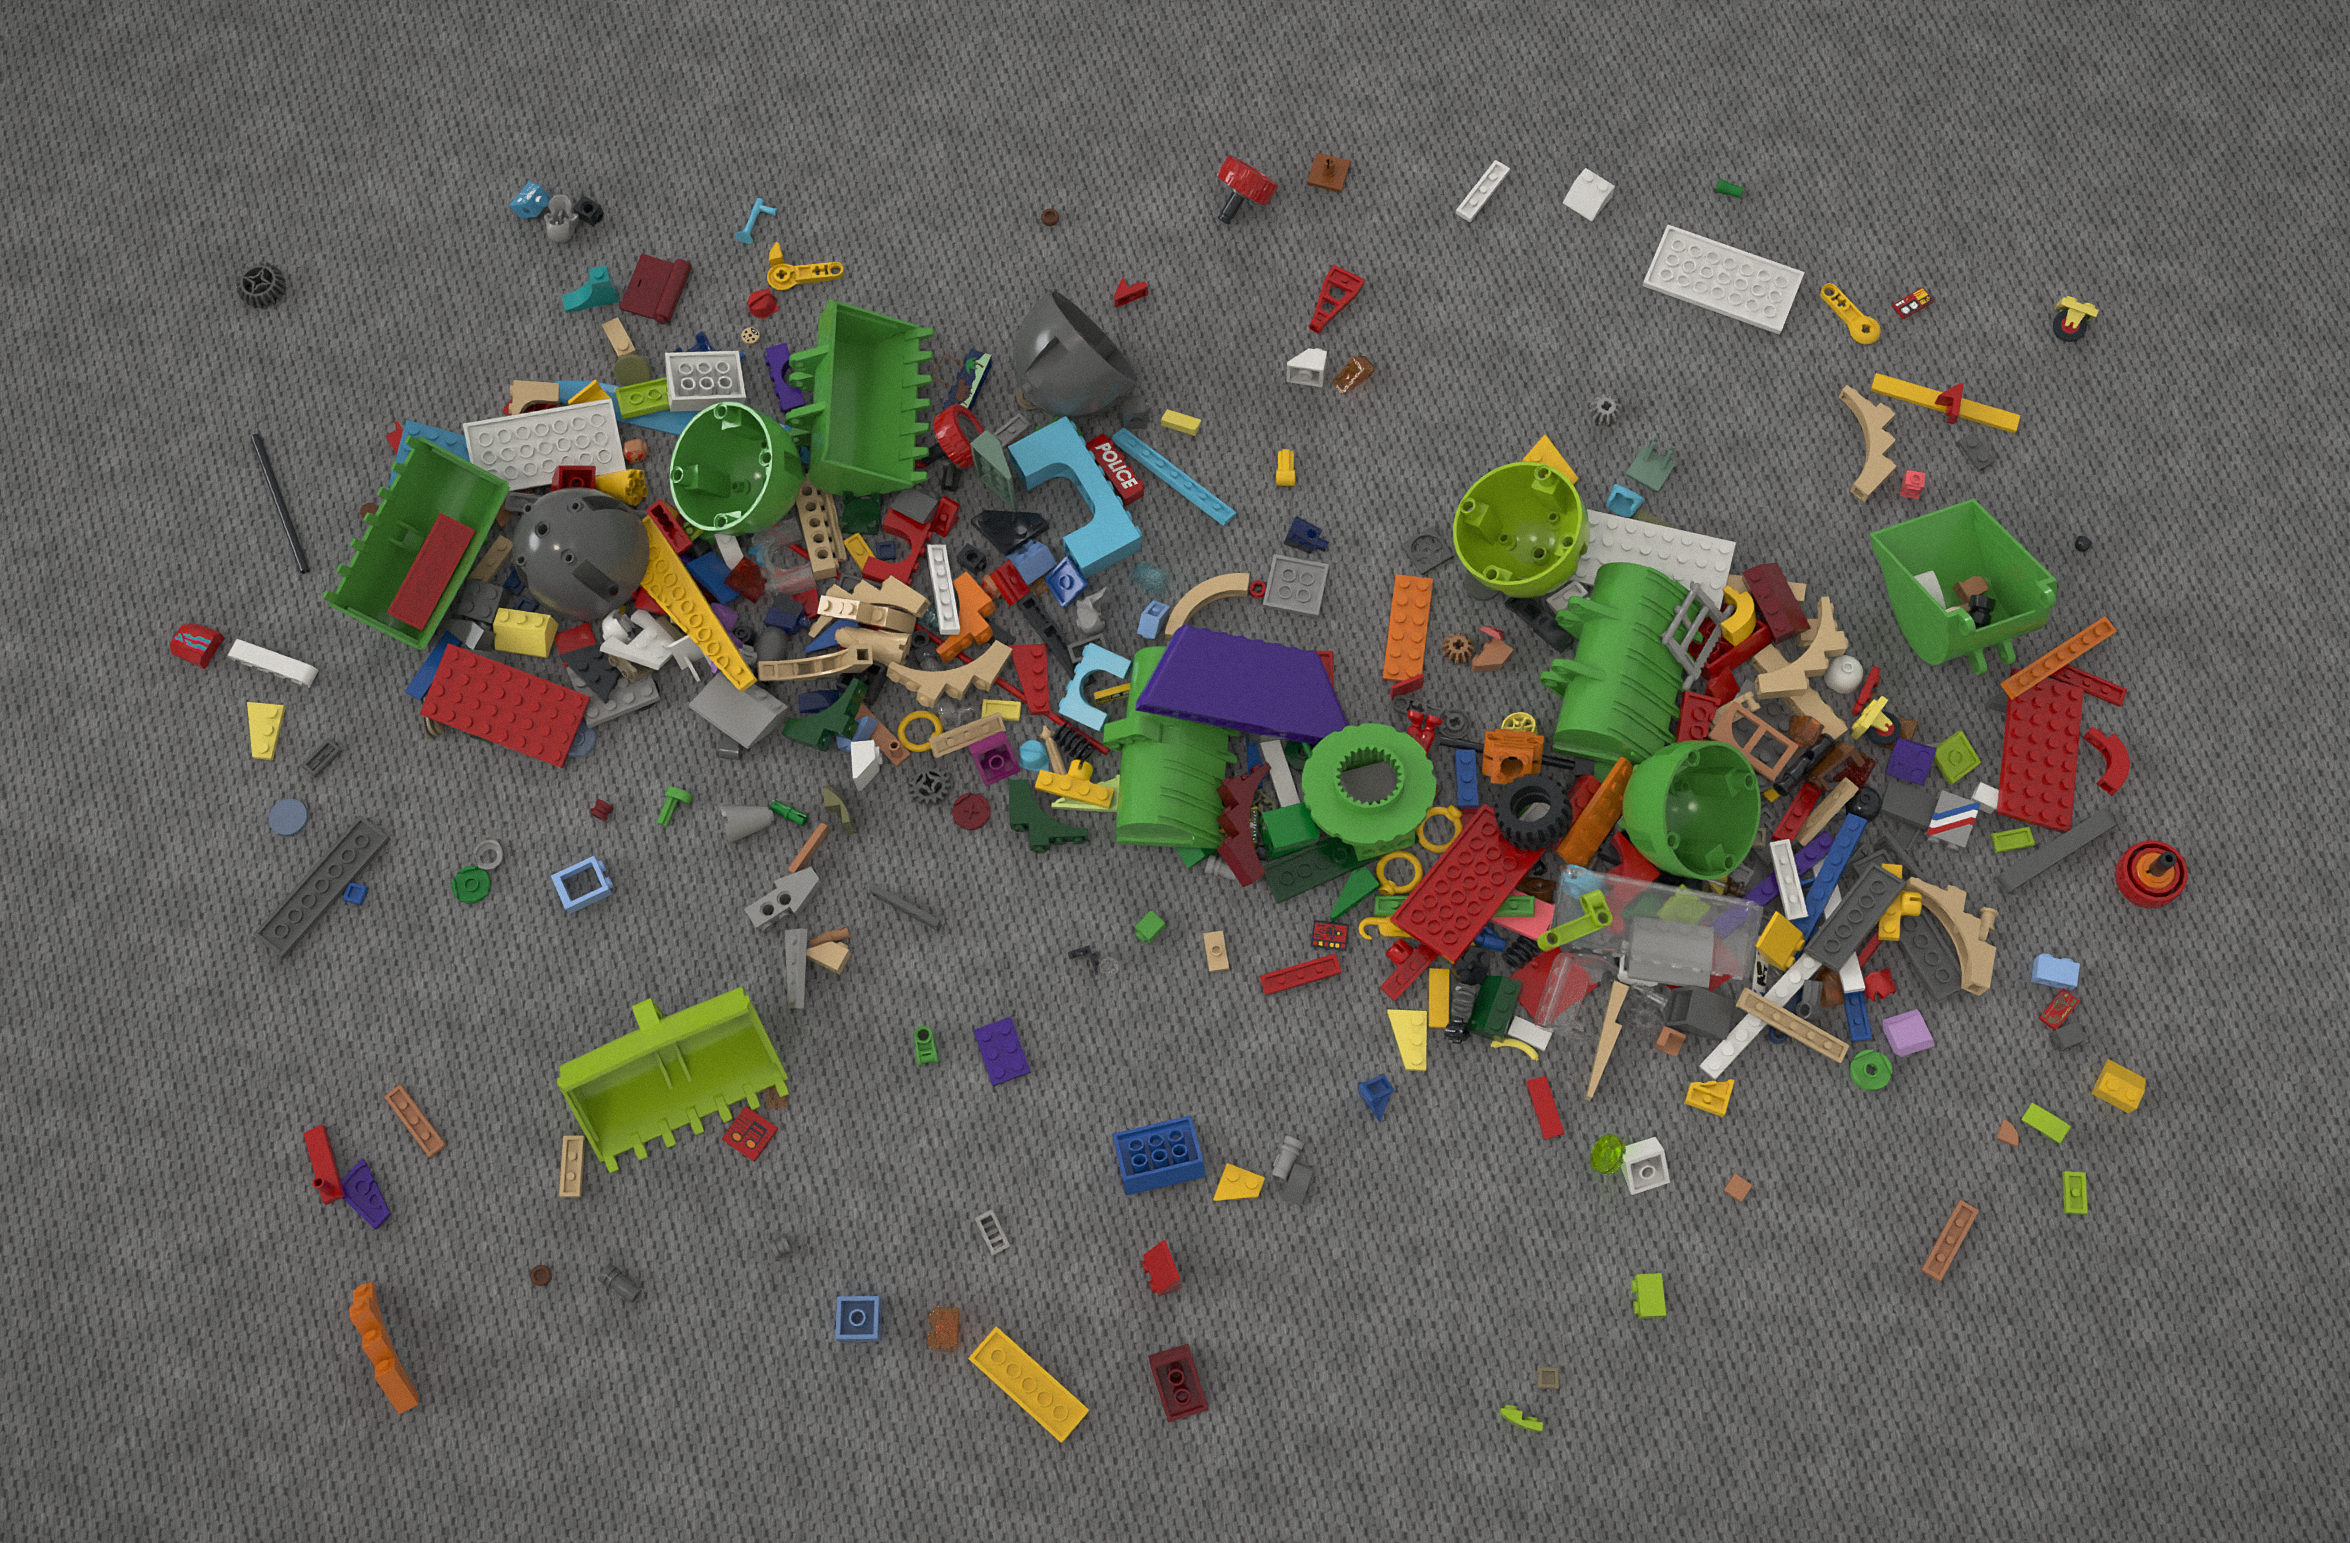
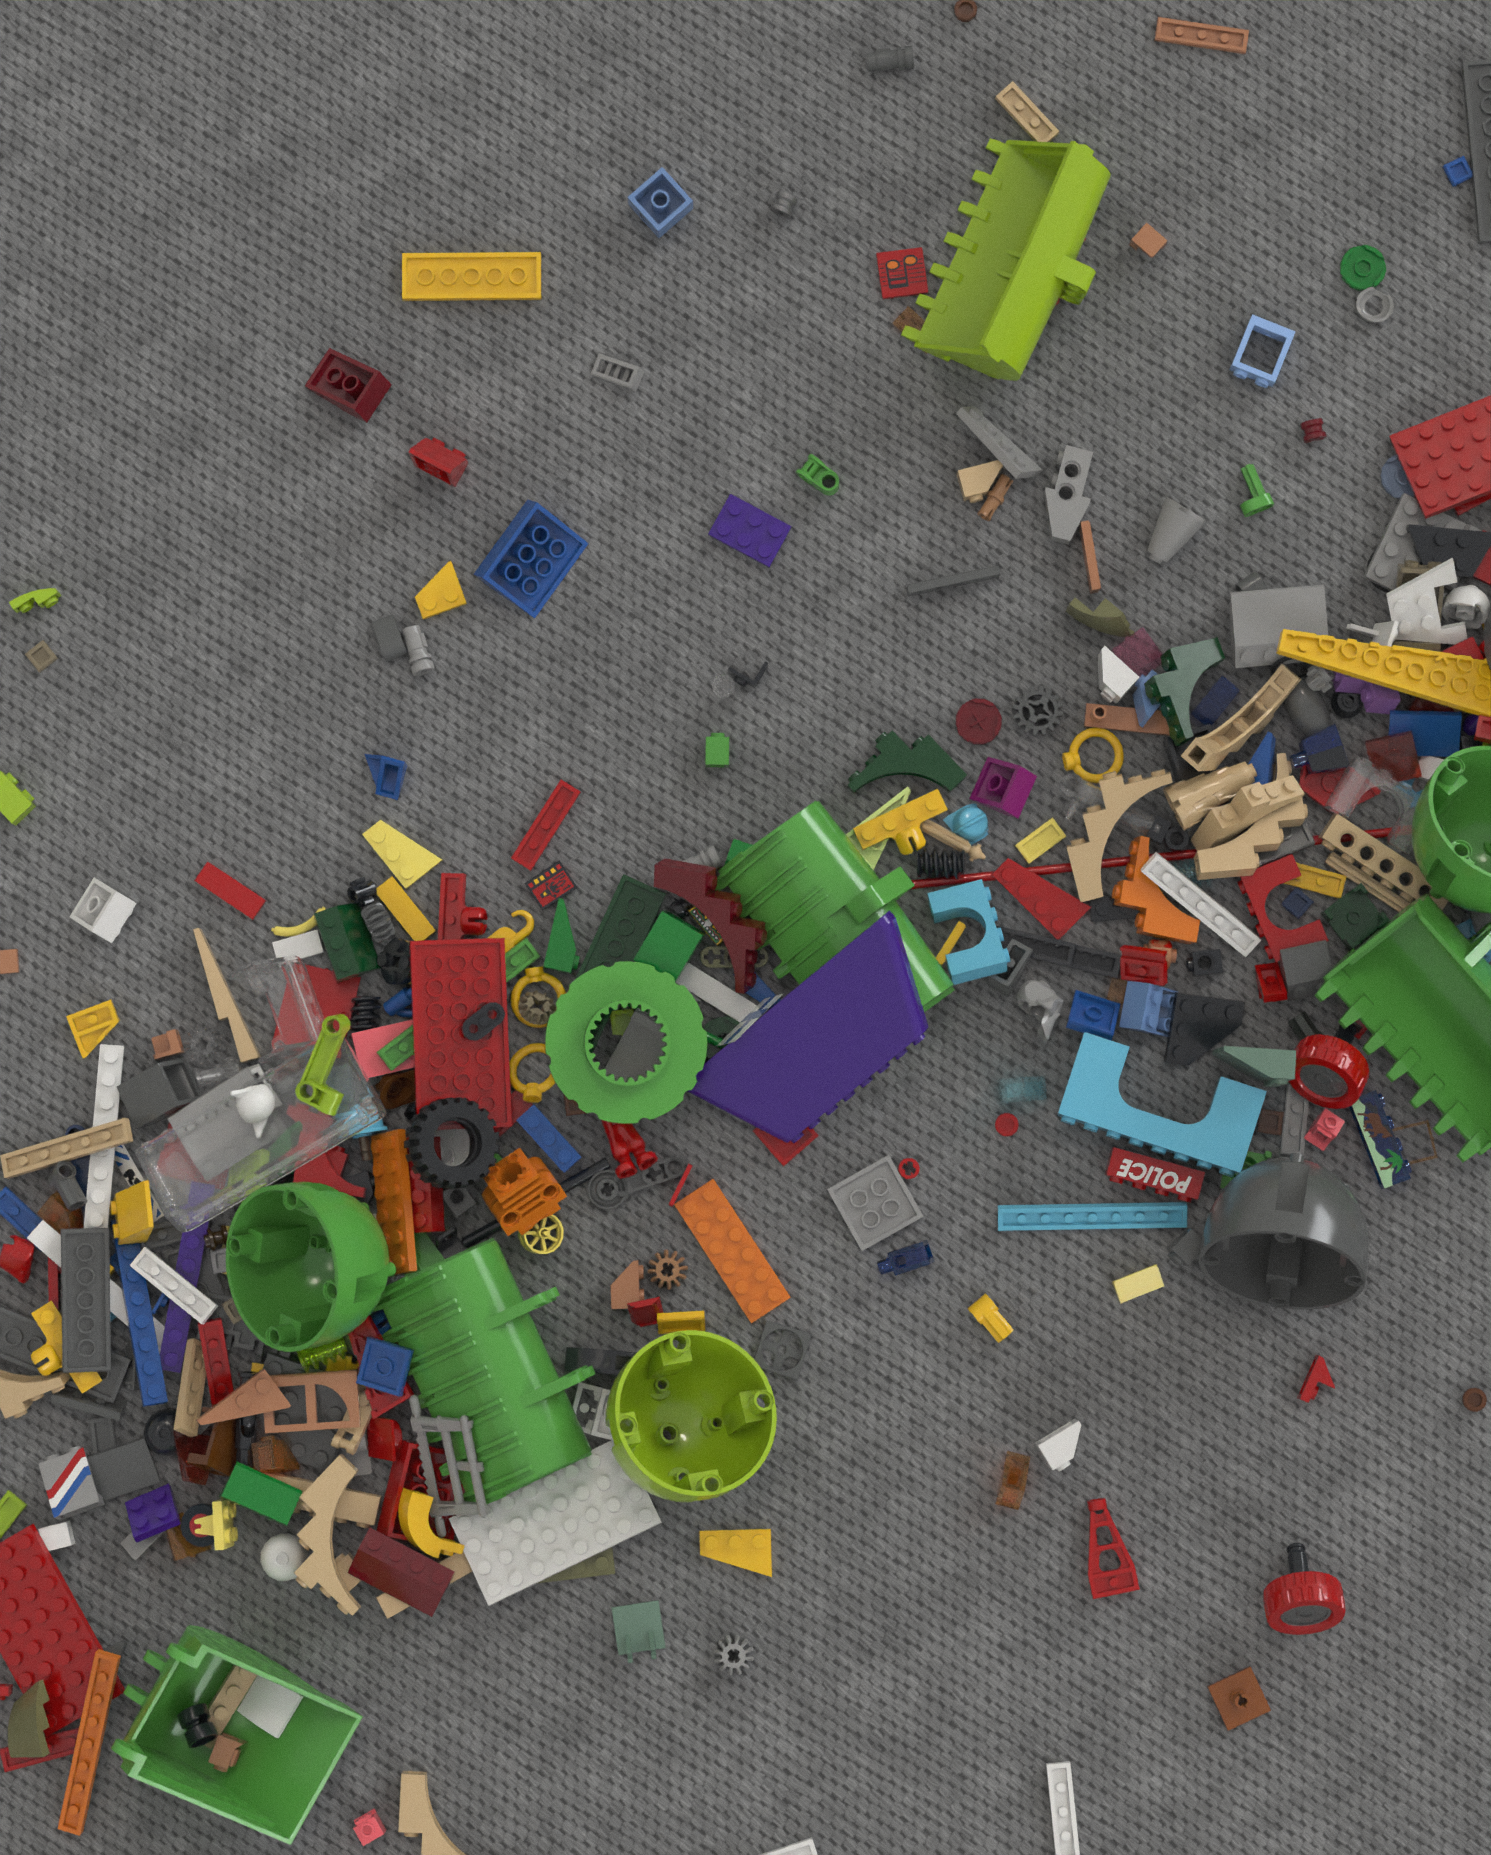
camera: 135 degrees right, 15 degrees up
(580, 1014) = (1148, 241): none -> nougat panel
(789, 812) = (1141, 576): green pin -> none
(836, 768) = (1139, 652): none -> clear pink piece
(944, 1329) = (582, 258): clear orange brick -> none
(966, 734) = (1046, 785): tan plate -> none
(993, 414) = (1324, 1129): none -> coral window
(1152, 619) = (979, 1051): light blue slope -> none
(1175, 567) = (1006, 1124): none -> red tile
(1206, 592) = (957, 1103): tan arch -> none
(1216, 951) = (640, 782): tan plate -> none
(1278, 740) = (763, 1006): none -> sticker
(1407, 873) = (536, 1015): none -> dark tan gear
(1448, 875) = (482, 1021): none -> black plate
(1476, 612) = (680, 1321): none -> yellow tile
(1607, 1154) = (140, 890): clear neon green tile -> none
(1624, 501) = (634, 1565): medium azure hair -> none
(1644, 938) = (255, 1105): none -> white piece
(1688, 719) = (384, 1366): none -> blue tile
(1790, 768) = (251, 1398): none -> nougat wing
(1832, 711) = (261, 1494): none -> green slope
(1866, 693) = (247, 1552): red hinge -> none
(1956, 757) = (114, 1556): lime tile -> none
(2091, 698) = (28, 1722): none -> olive slope

